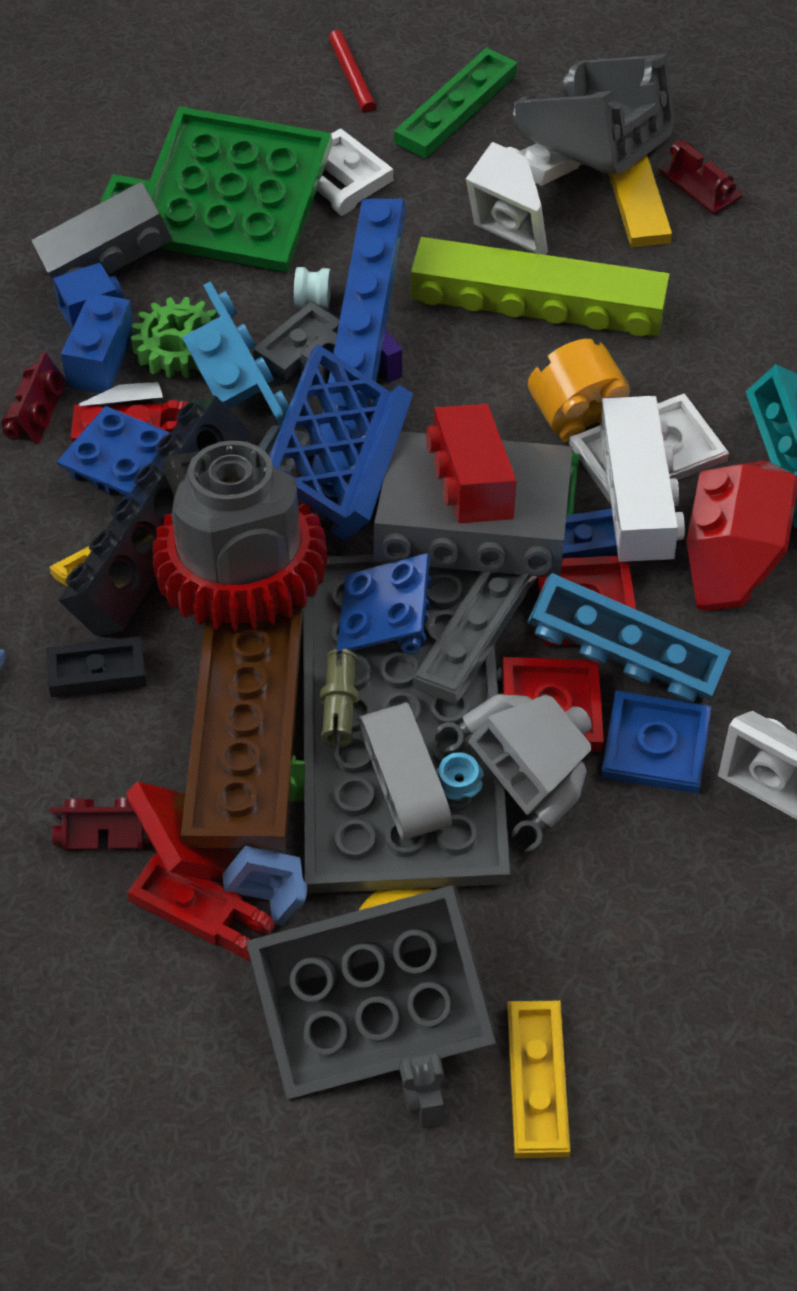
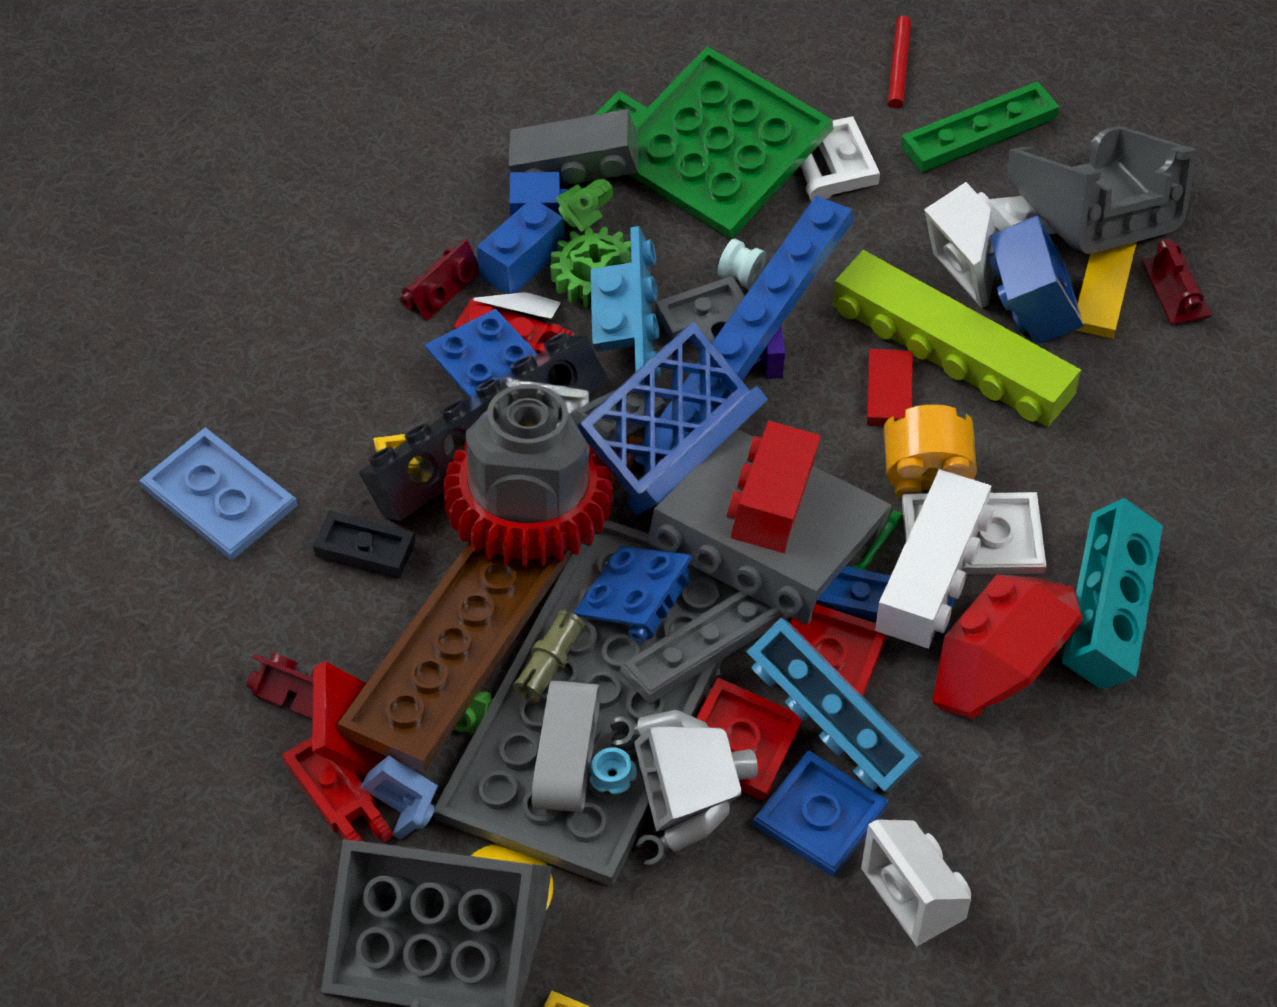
camera: 25 degrees right, 0 degrees up
(141, 281) = (581, 206): none -> bright green hinge
(503, 350) = (888, 385): none -> red tile
(588, 211) = (1034, 281): none -> blue brick

